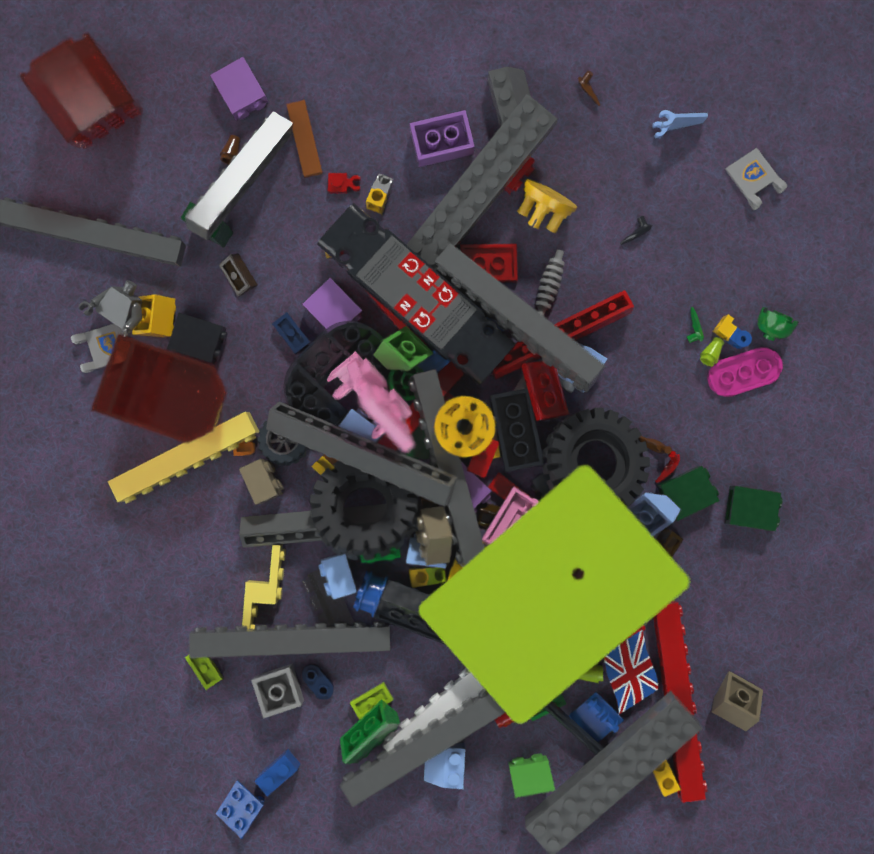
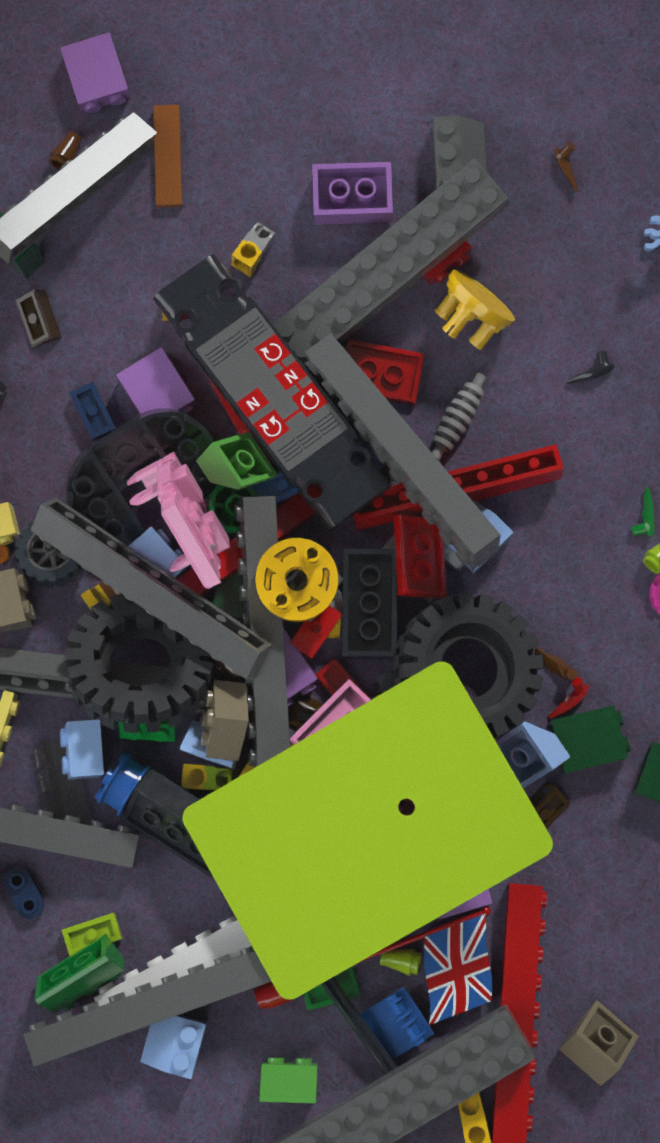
camera: 15 degrees right, 5 degrees down
(340, 182) = (203, 223): red plate -> none

